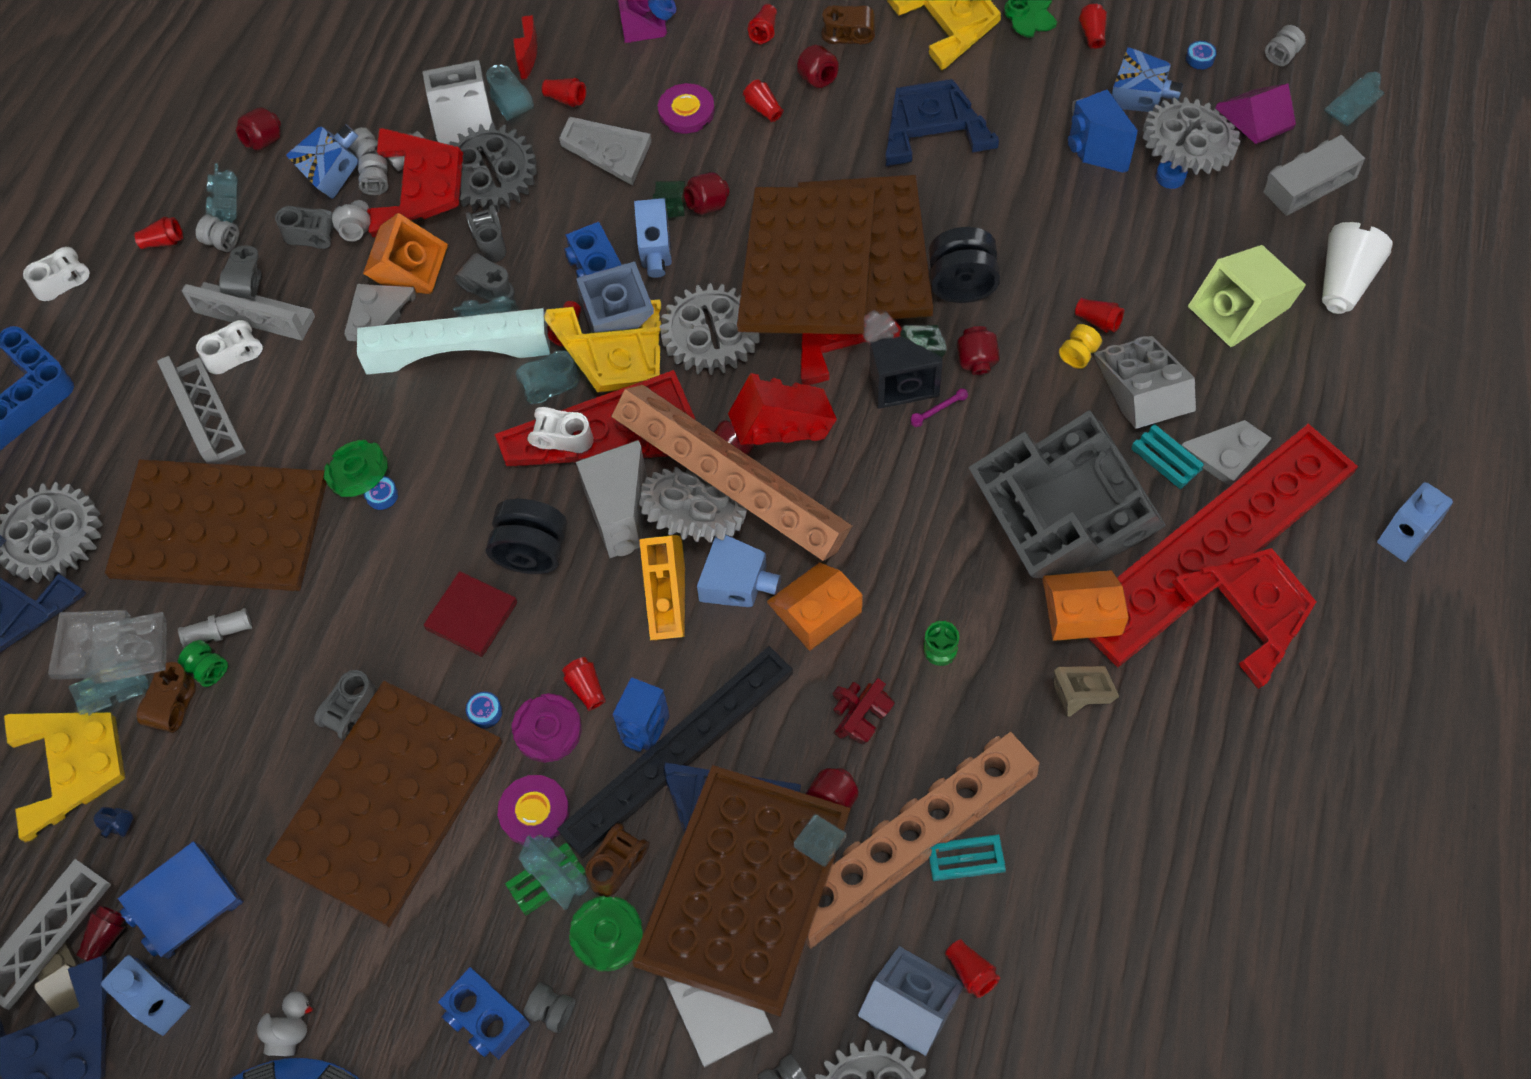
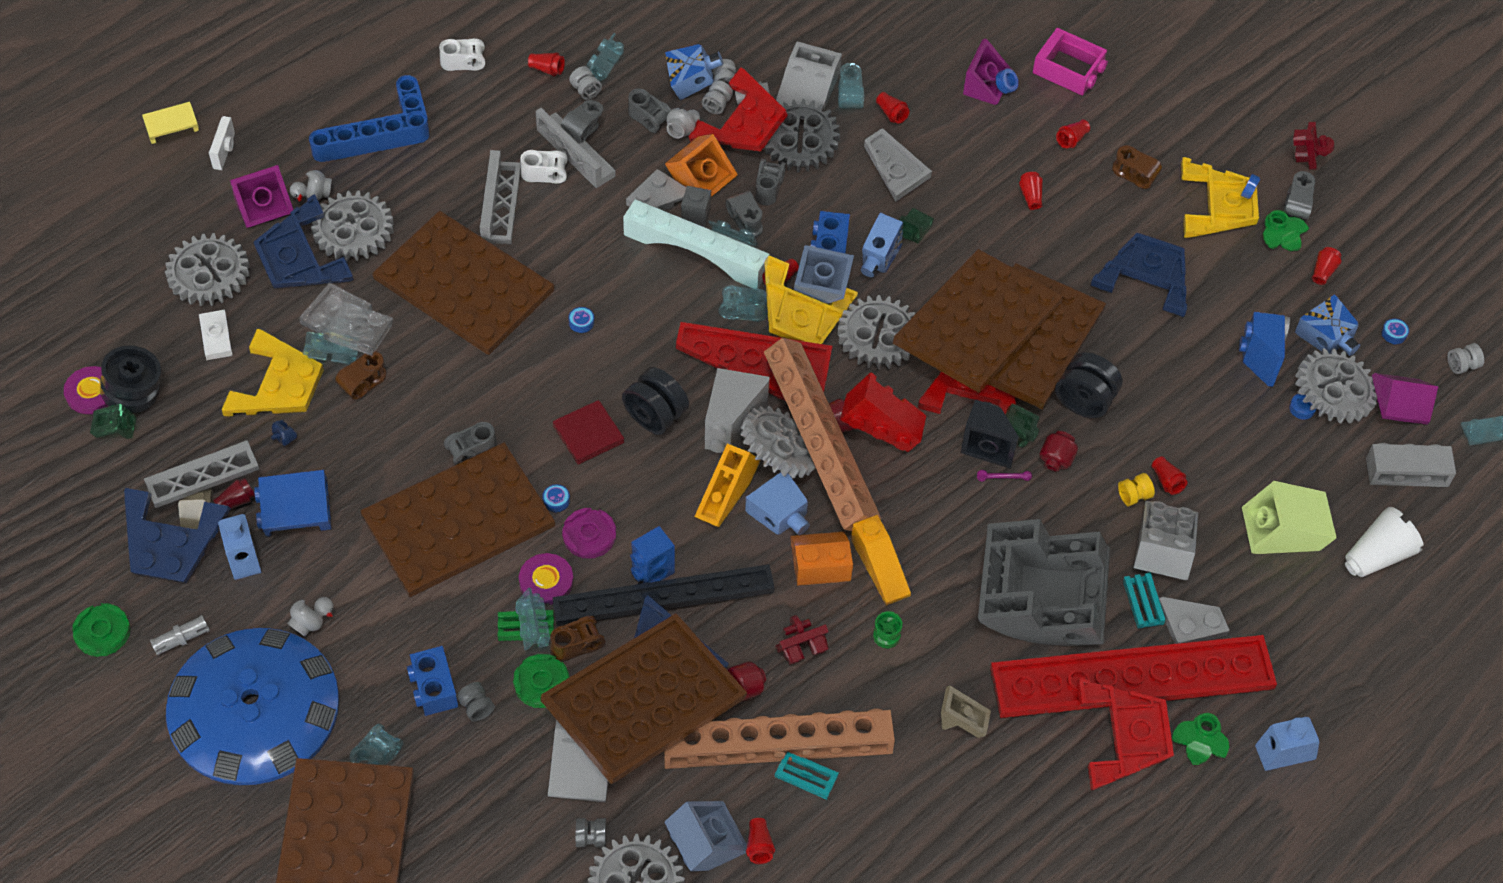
camera: 25 degrees right, 5 degrees down
(204, 664) = (397, 363): green wheel -> none
(215, 627) = (419, 347): light grey pin -> none
(258, 128) = (659, 23): dark red head -> none
(355, 468) = (575, 294): green tile -> none
(427, 299) = (696, 205): none -> dark grey brick
(526, 47) = (886, 62): red slope -> none
(554, 430) = (722, 340): white piece -> none
(584, 682) = (632, 515): red cone -> none
(686, 108) = (973, 166): magenta tile -> none
(706, 193) = (942, 235): dark red head -> none
(817, 66) = (1090, 185): dark red head -> none
(819, 840) = (711, 697): clear light blue tile -> none
(879, 327) = (995, 394): clear gear -> none
(879, 570) = (880, 559): none -> light orange slope
(1085, 605) = (1001, 660): orange slope -> none
(1326, 571) = (1199, 742): none -> green plate

